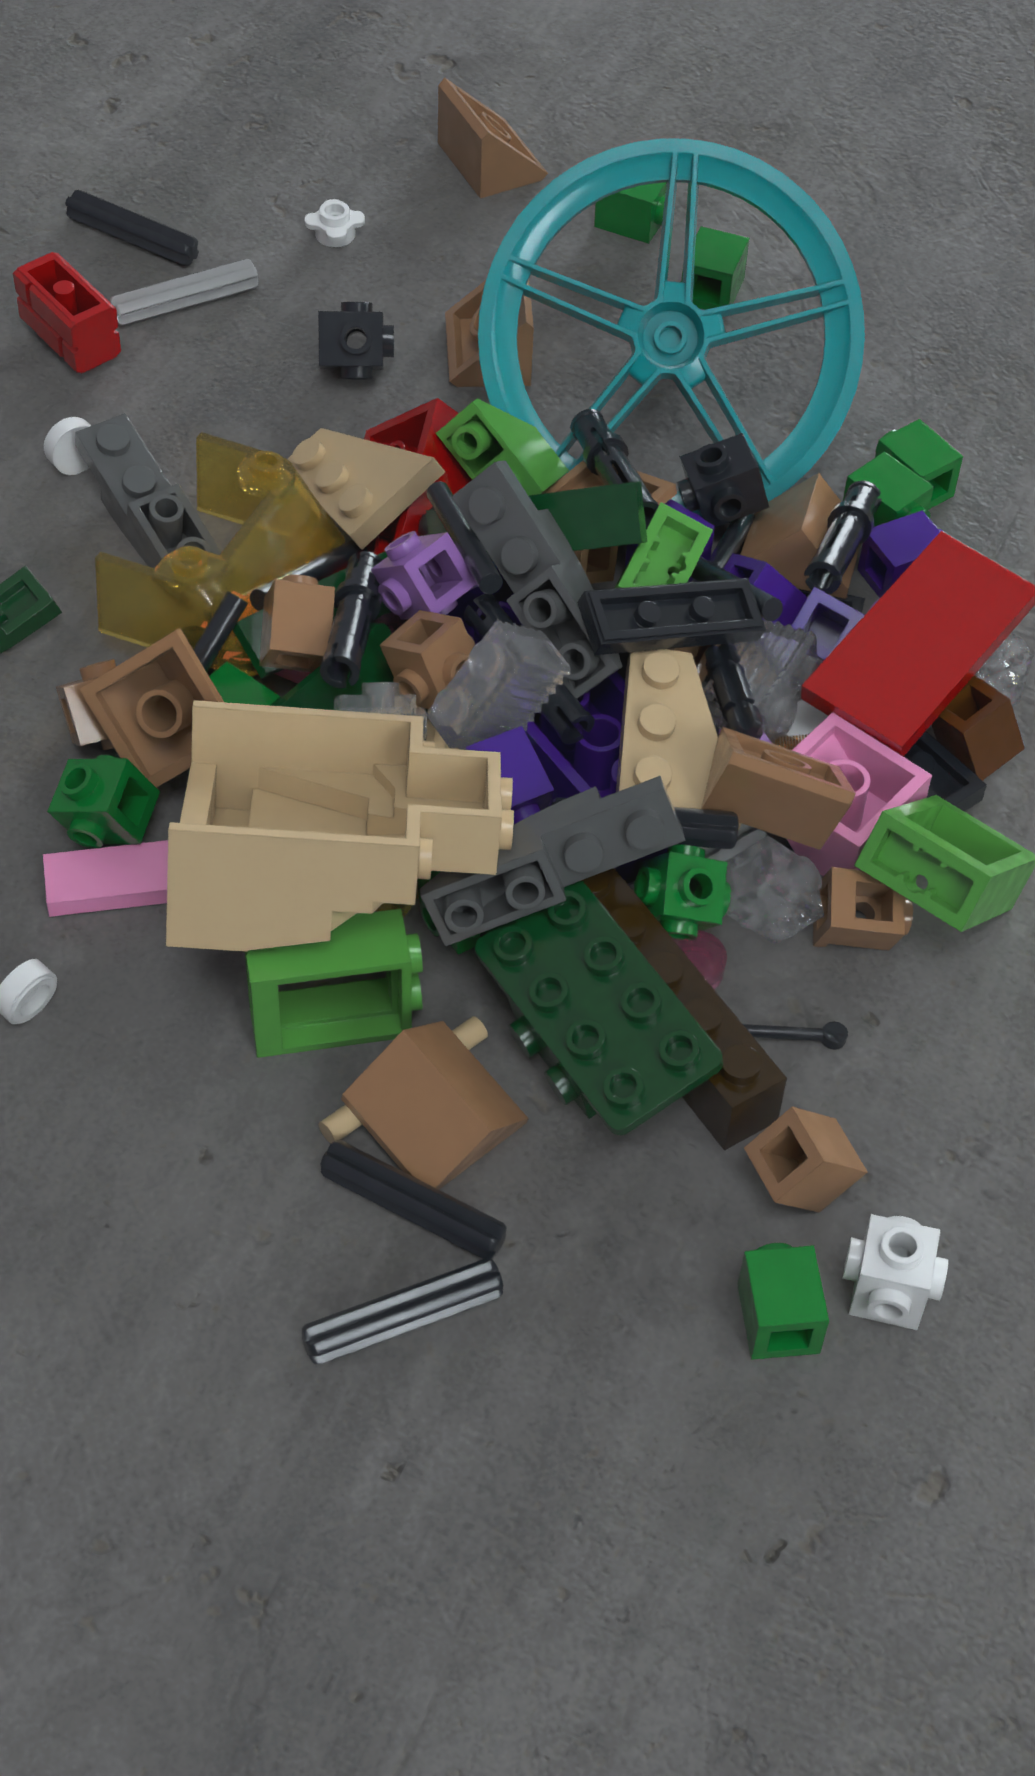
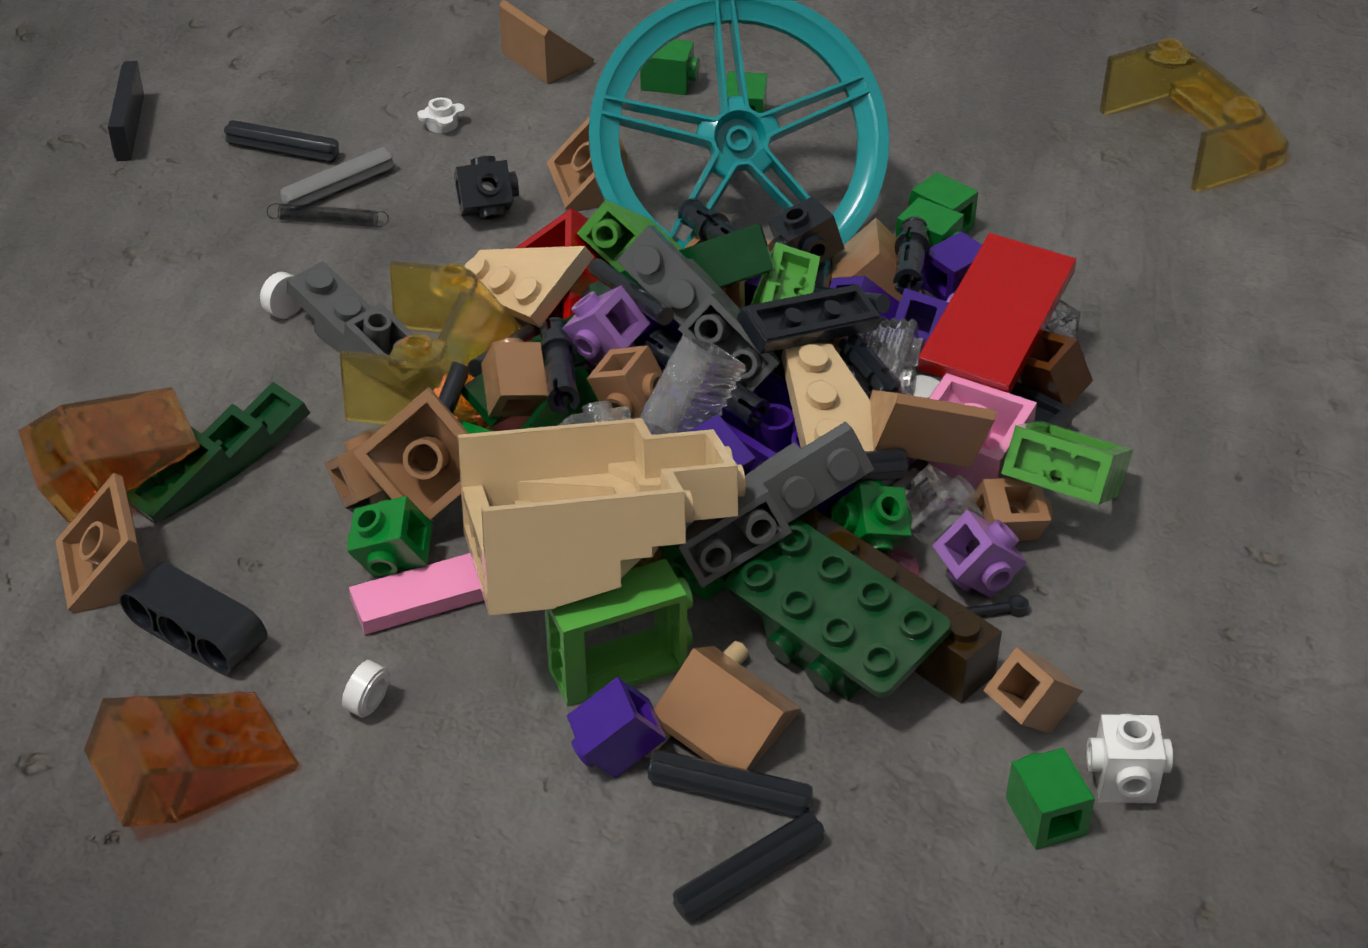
camera: 10 degrees left, 10 degrees down
(67, 312) = (252, 202): red brick -> none
(136, 336) = (304, 214): none -> black piece
(294, 1105) = (615, 728): none -> dark purple brick
(801, 963) = (980, 554): none -> medium lavender brick

